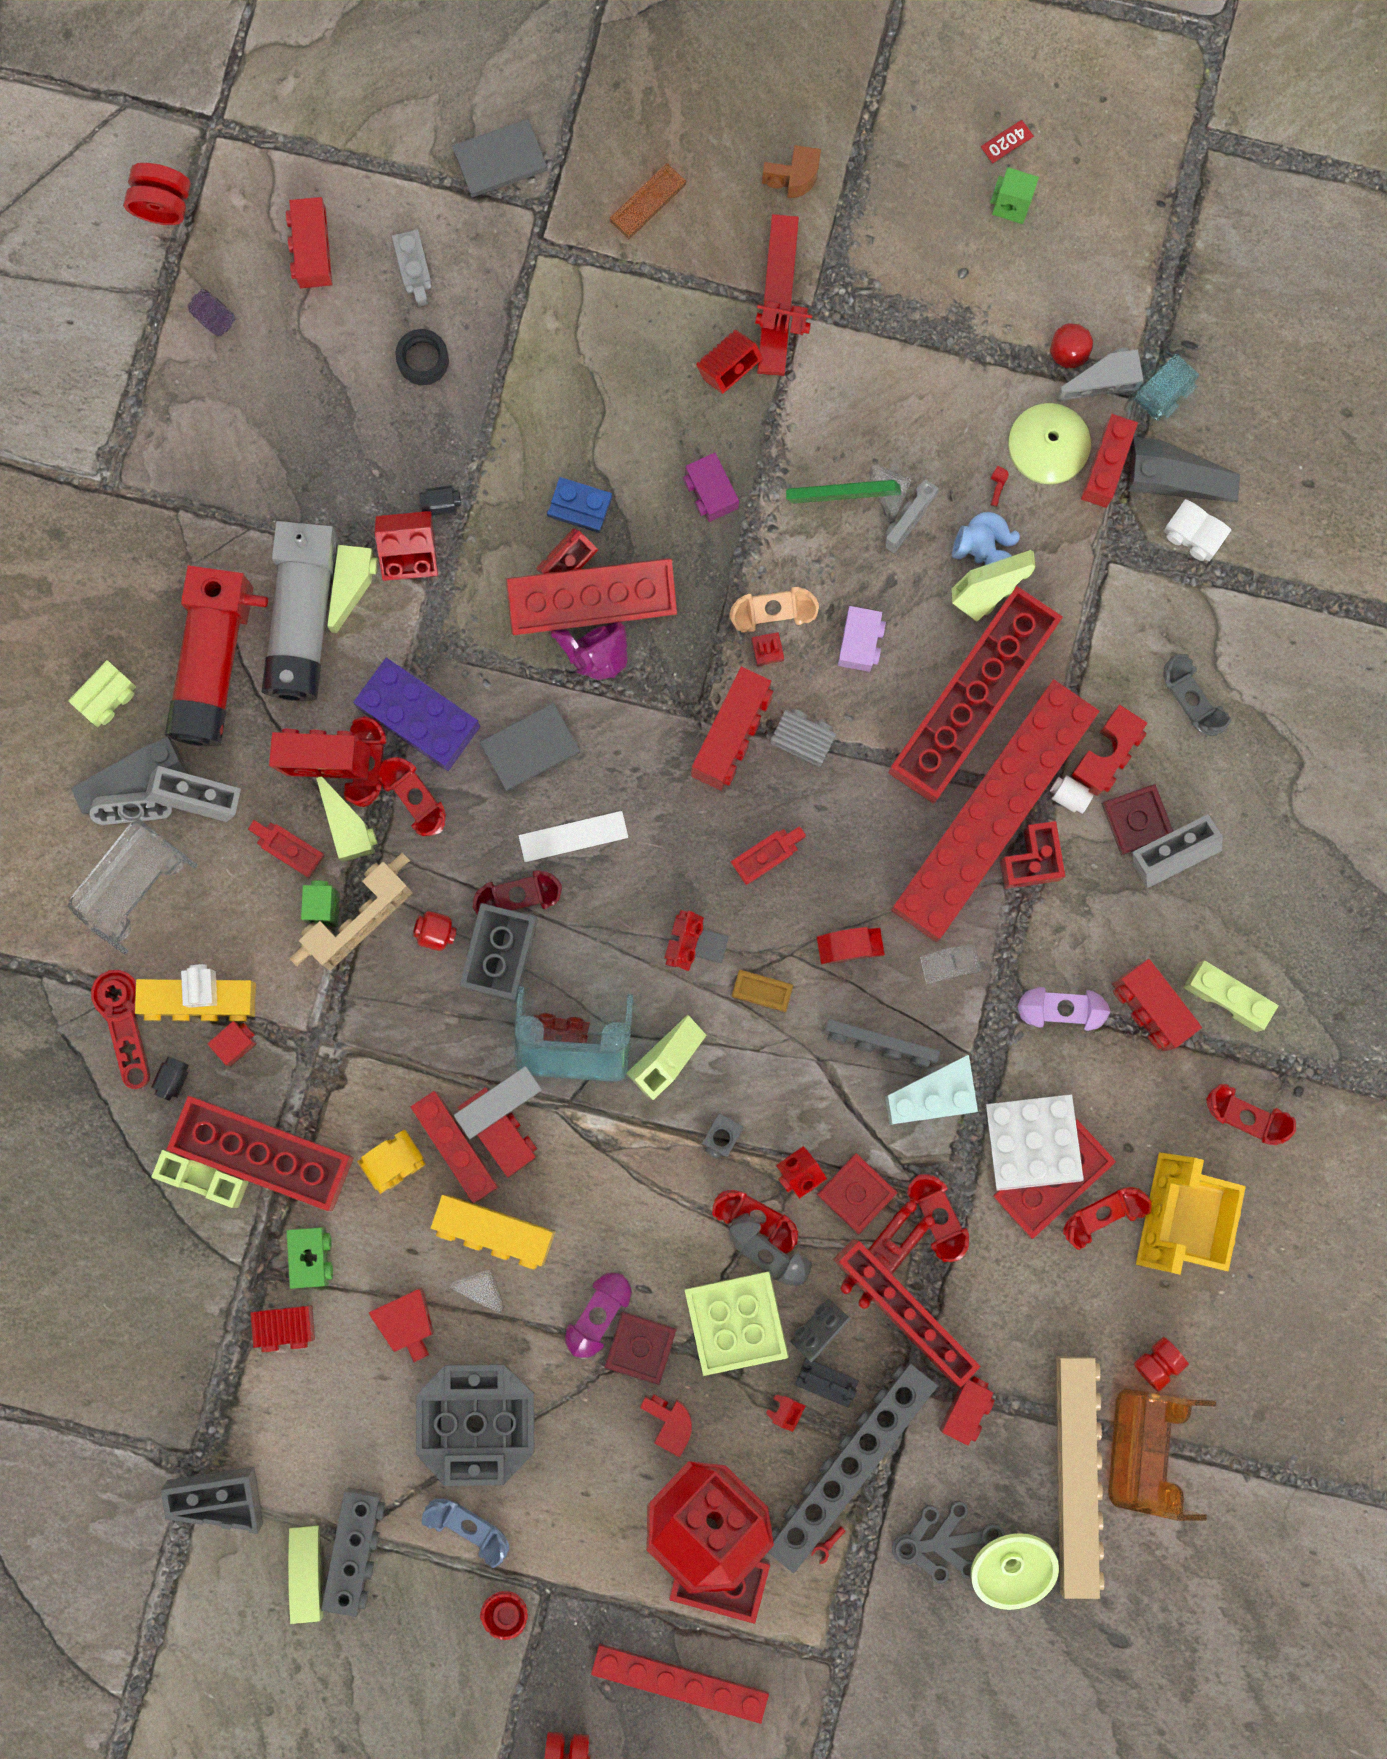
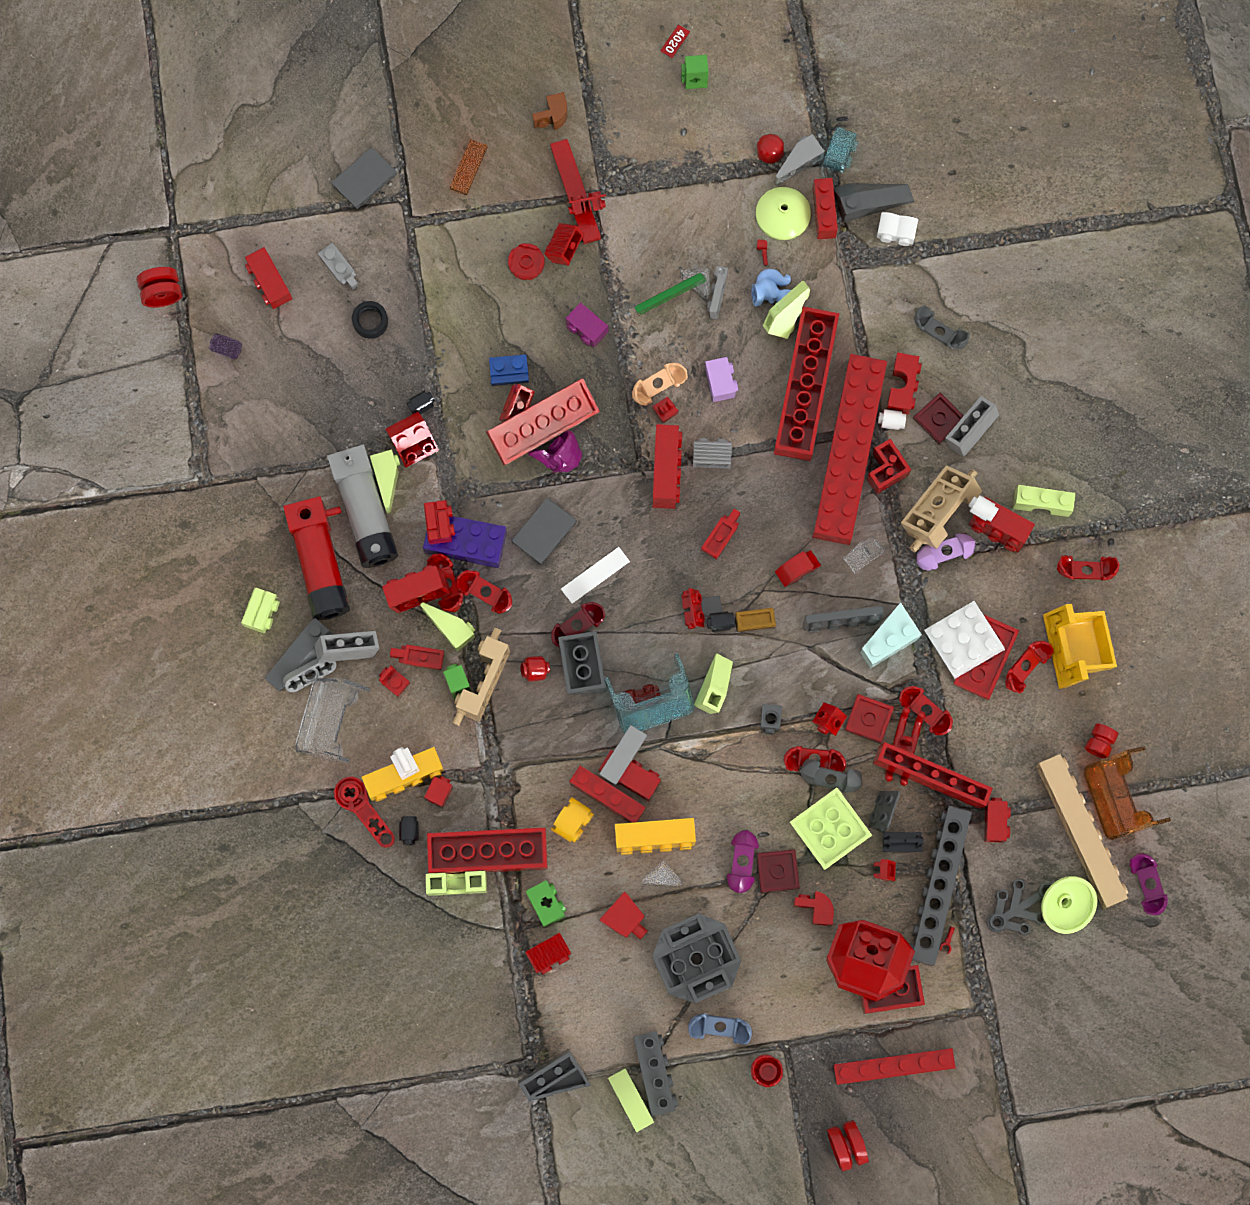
camera: 20 degrees left, 5 degrees down
(239, 865) = (393, 680): none -> red bracket
(386, 676) = (438, 522): none -> red brick
(668, 364) = (526, 261): none -> red tile
(713, 974) = (720, 621): none -> black brick
(1056, 956) = (926, 519): none -> tan brick
(1137, 1614) = (1155, 899): none -> magenta piece
(1139, 975) = (983, 508): none -> white brick

